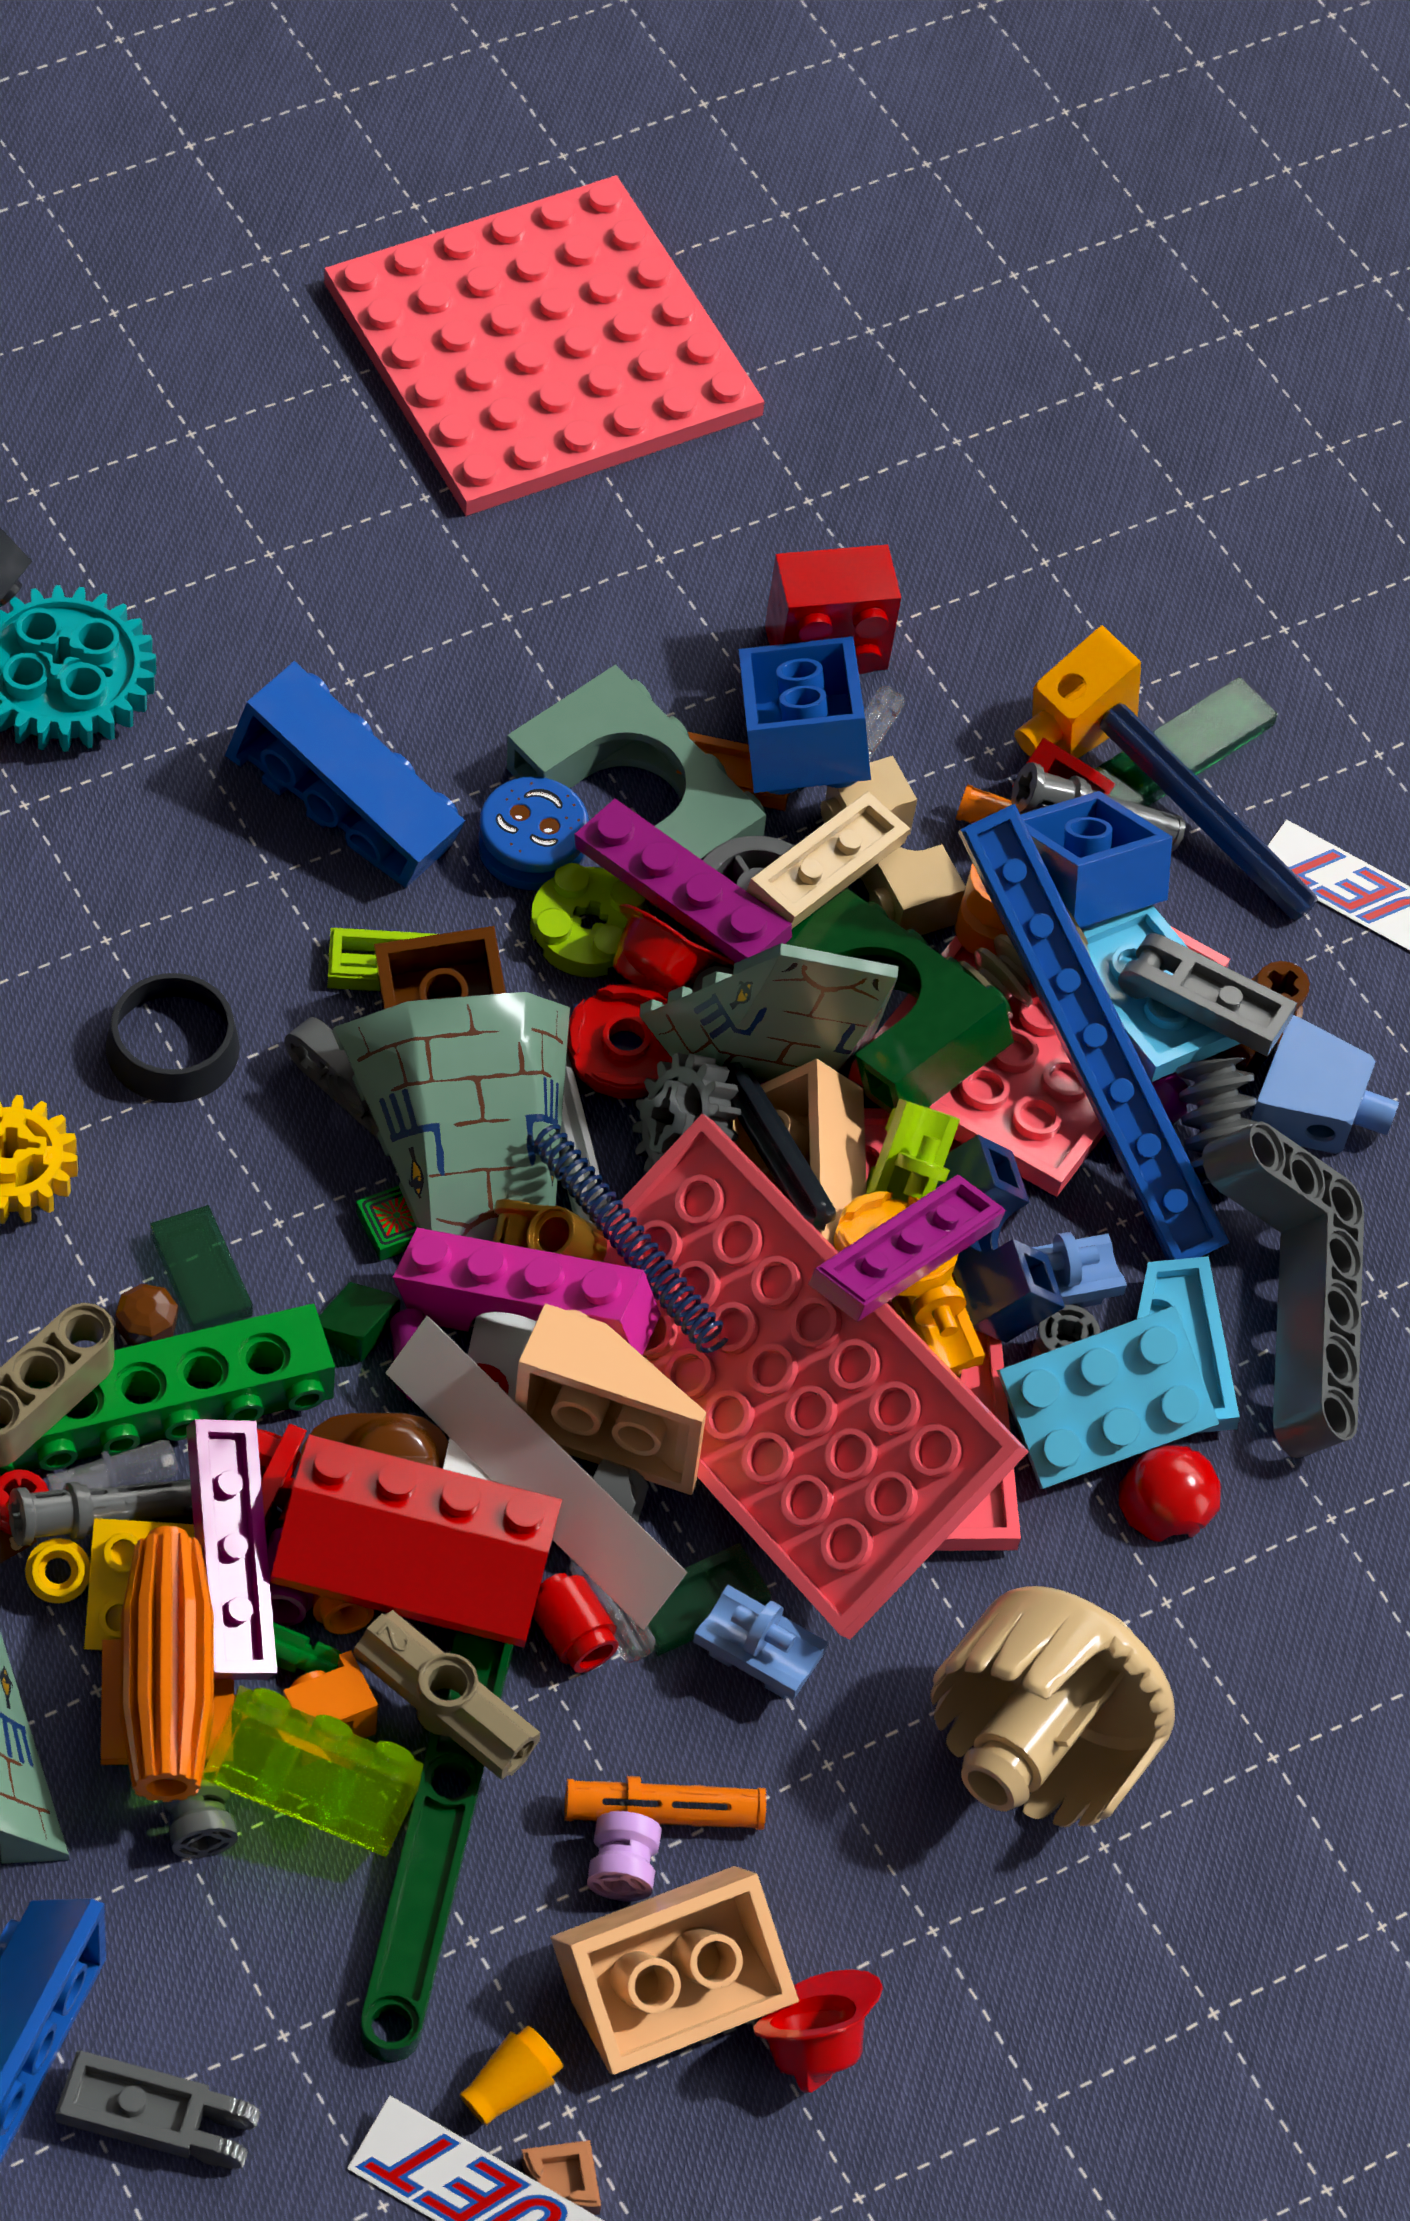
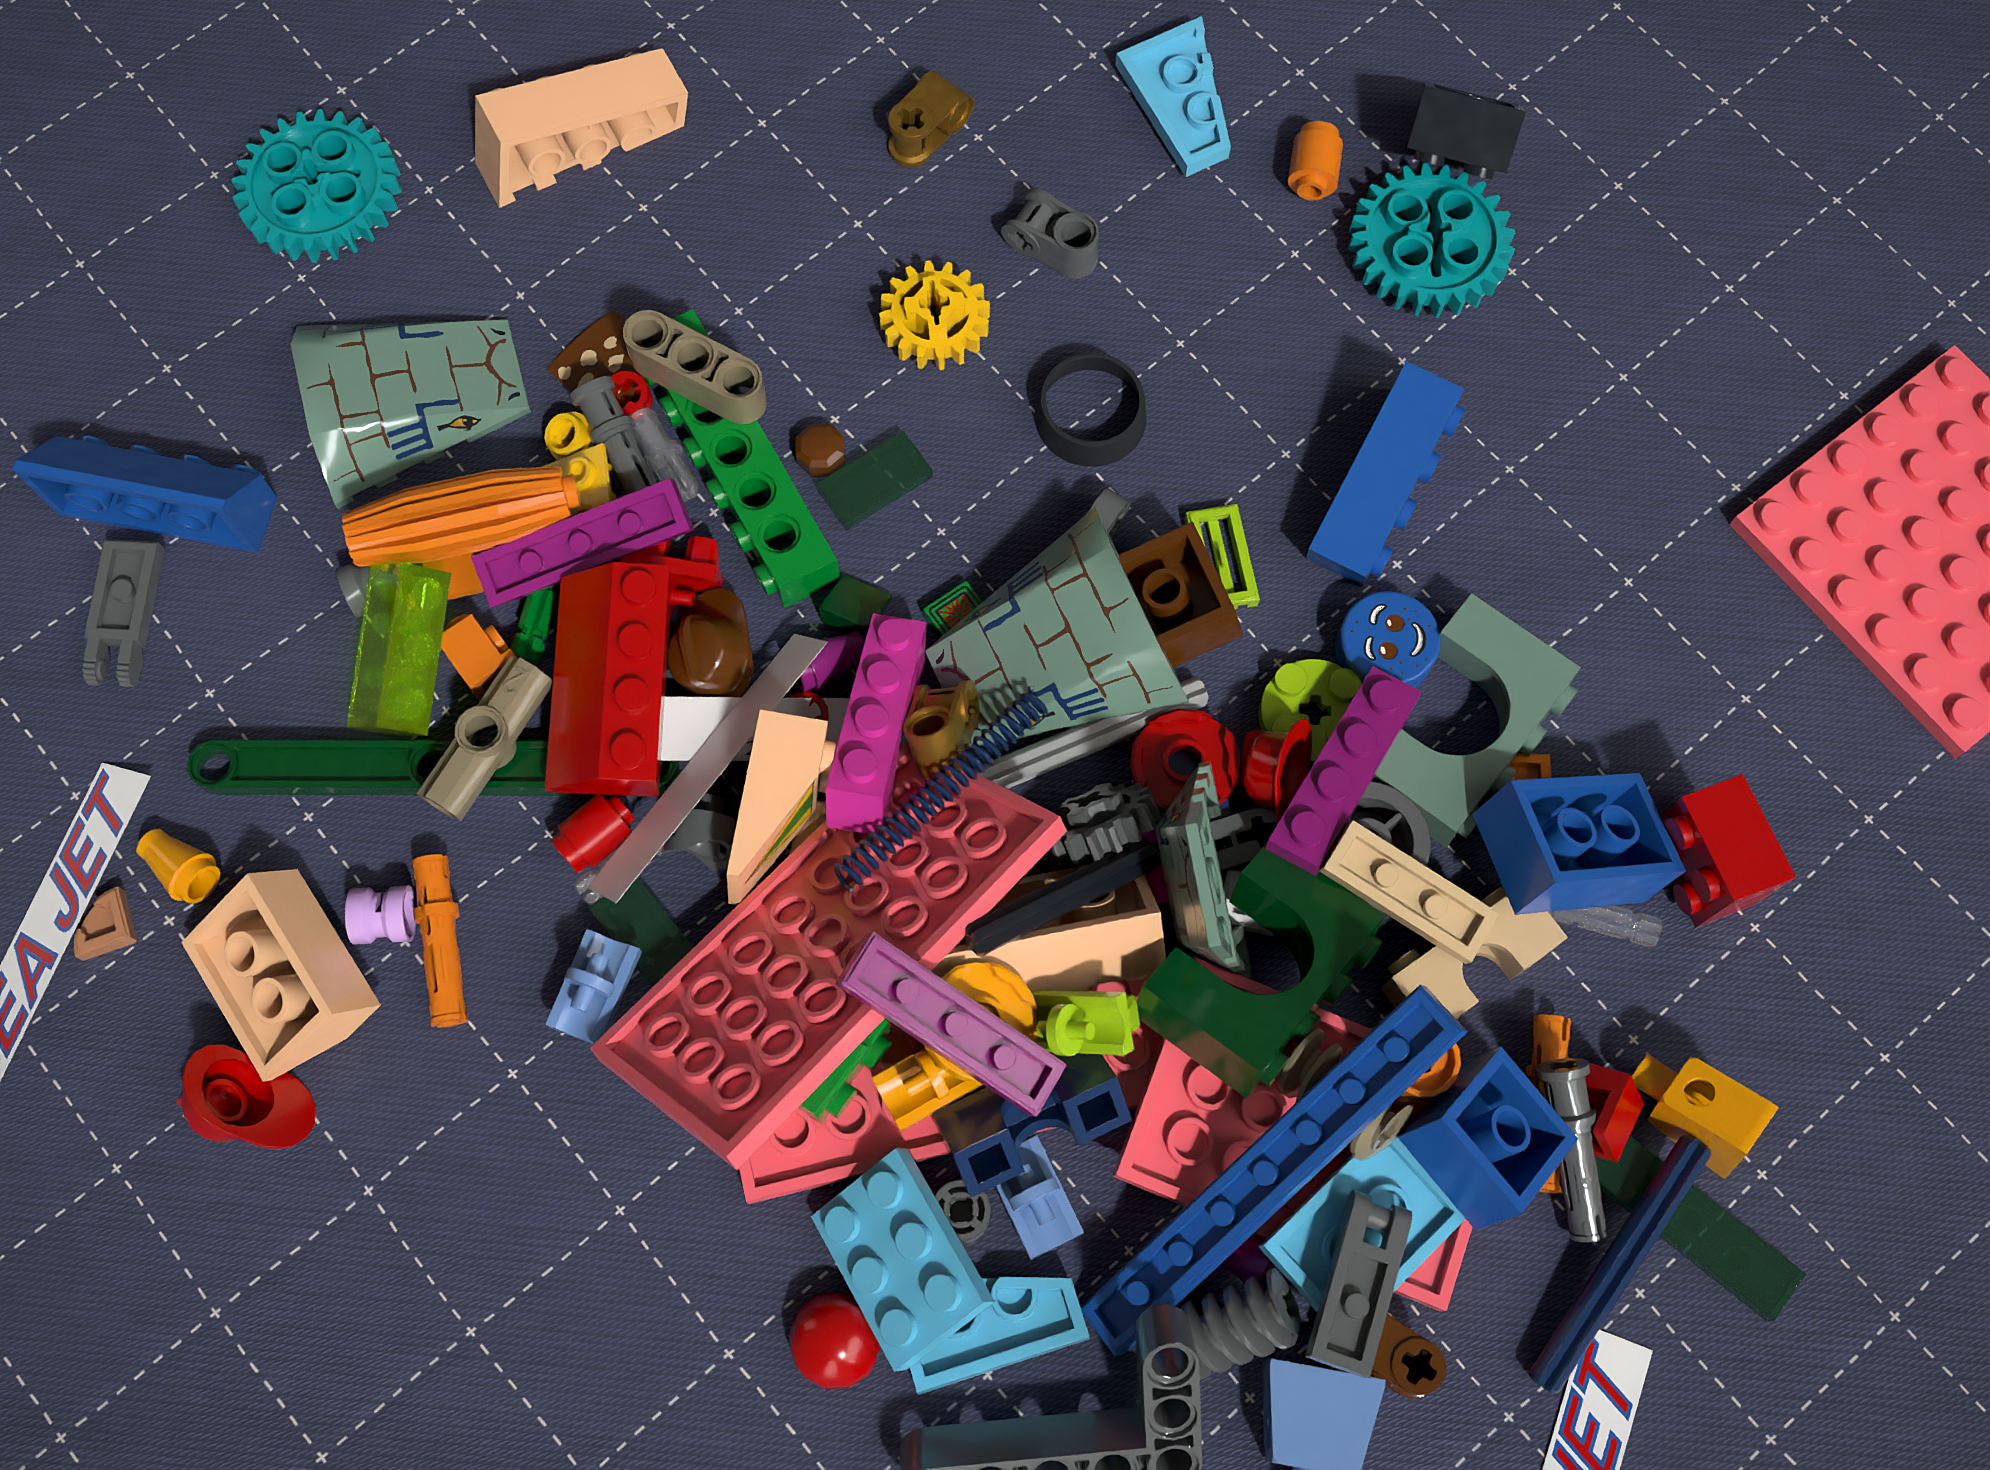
camera: 85 degrees right, 15 degrees up
(1032, 1683) = (545, 1241): tan piece -> none

